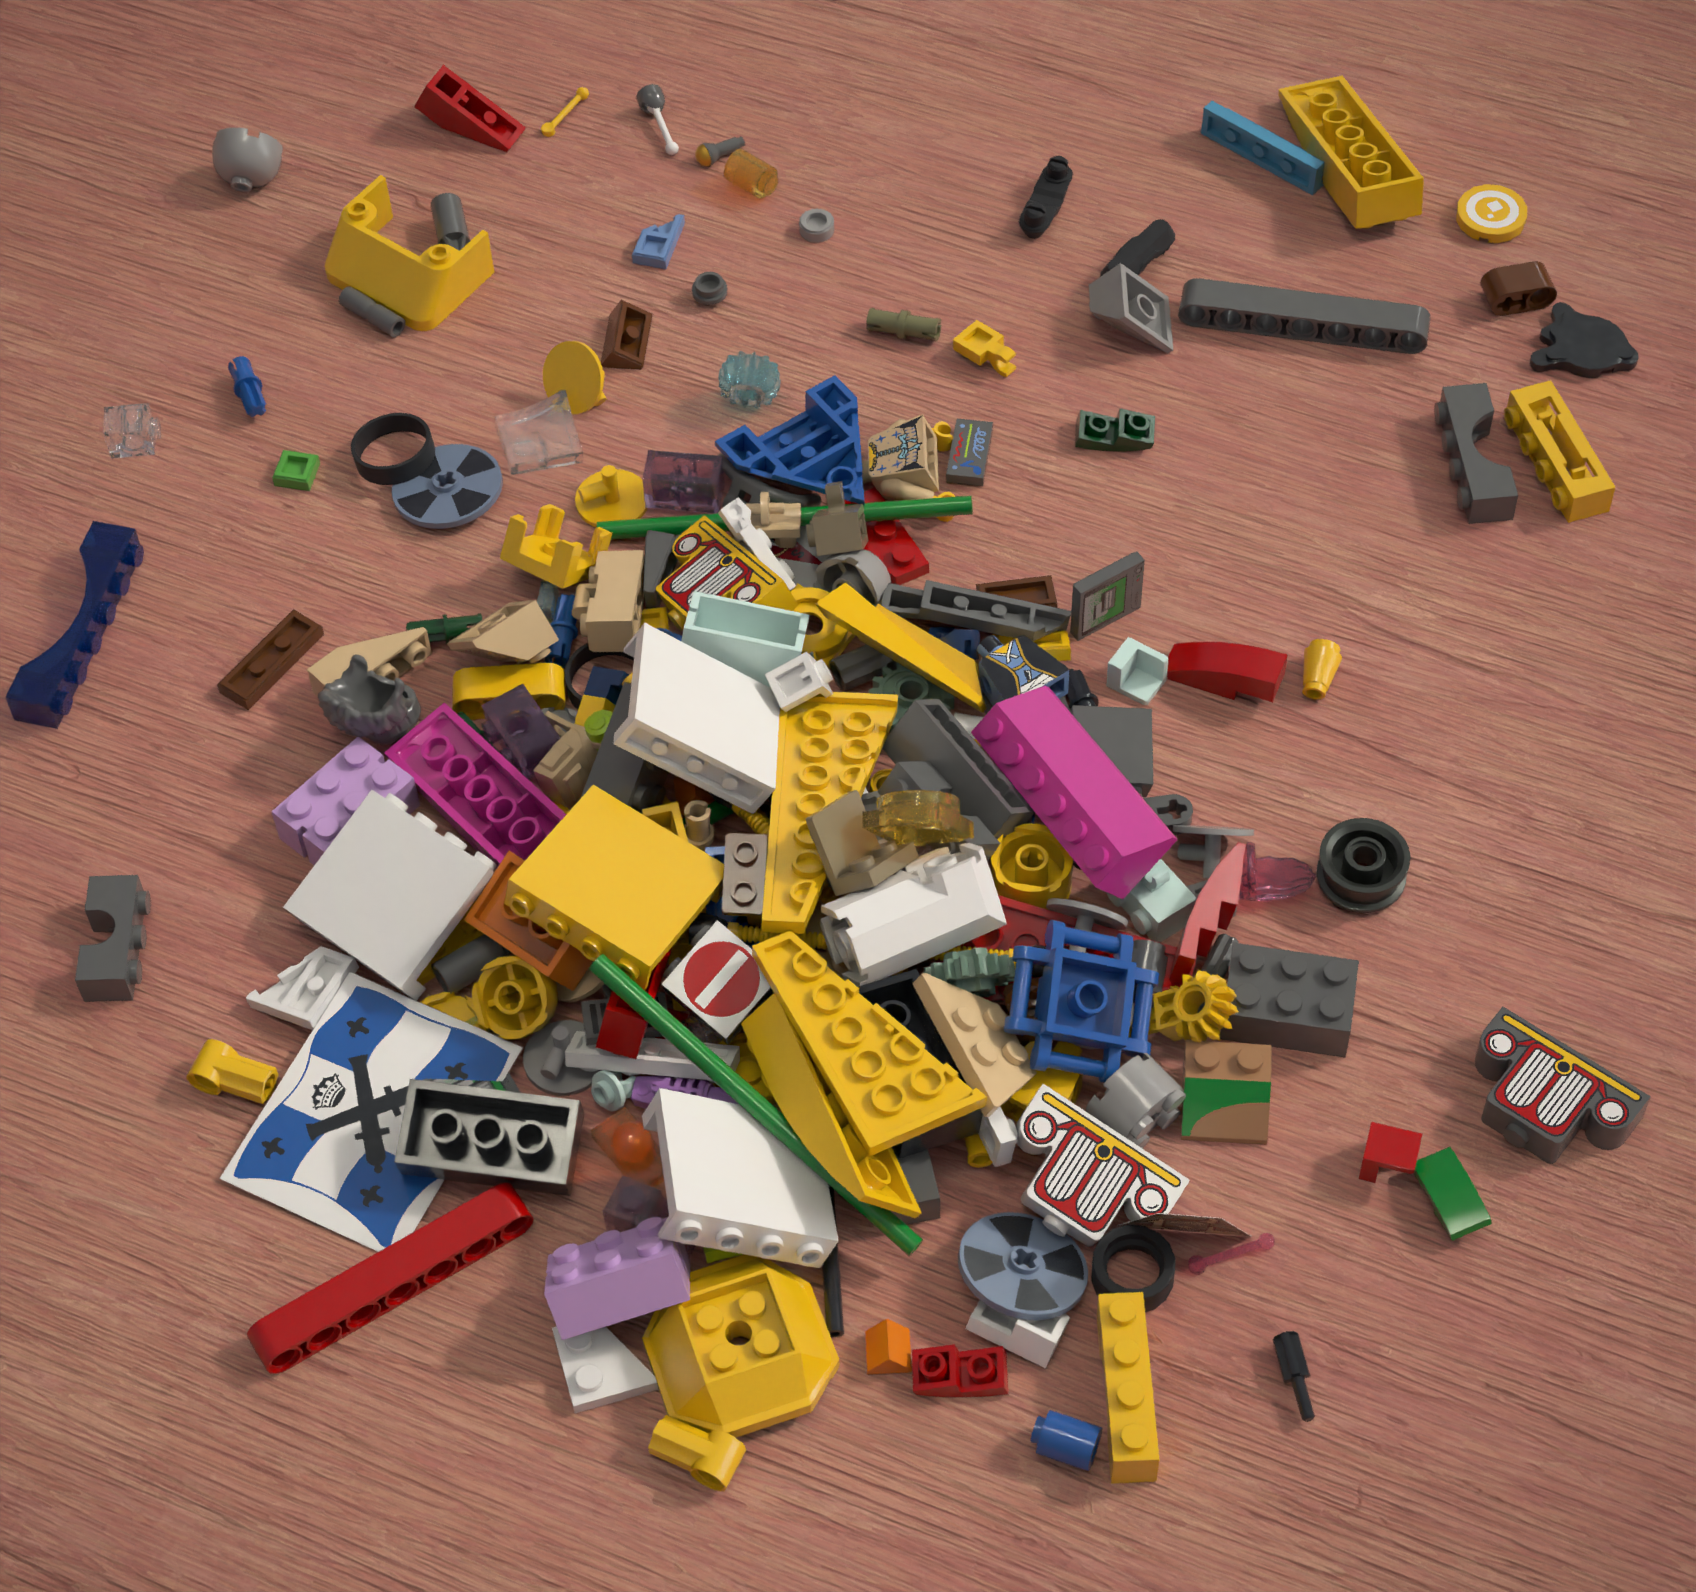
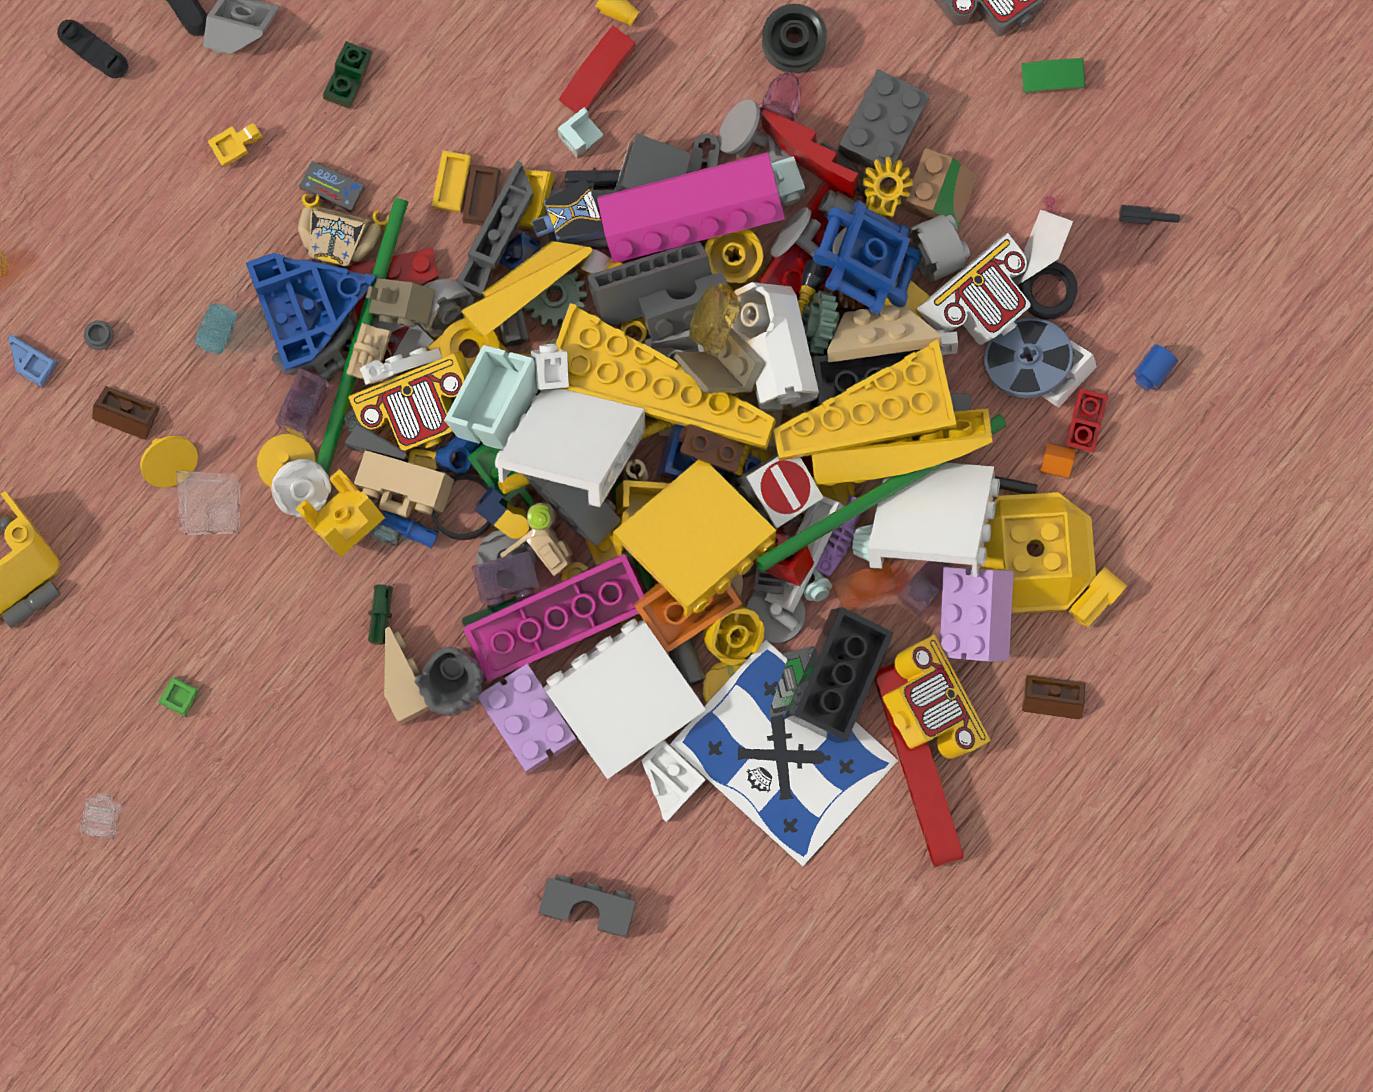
camera: 75 degrees left, 25 degrees up
(47, 684) = (233, 858): clear blue arch -> none
(222, 1069) = (723, 846): yellow piece -> none
(247, 386) = (82, 717): blue axle -> none
(270, 659) = (362, 750): reddish brown tile -> none
(389, 424) = (158, 612): black tyre -> none
(452, 490) = (213, 587): sand blue piece -> none
(476, 1259) = (933, 702): none -> brick
(482, 684) = (454, 581): yellow beam -> none
(509, 634) = (417, 570): tan slope -> none
(536, 1435) = (1054, 697): none -> reddish brown slope
(586, 504) = (300, 482): none -> white tile
(601, 1369) = (1025, 646): white wing -> none
(816, 225) = (55, 233): light grey tile -> none
(903, 324) = (189, 197): olive pin -> none
(1022, 562) = (451, 181): none -> yellow tile
(1107, 595) = (515, 130): dark grey tile -> none
(1128, 1388) = (1156, 324): yellow arch -> none
(1389, 1149) = (1016, 102): red panel -> none

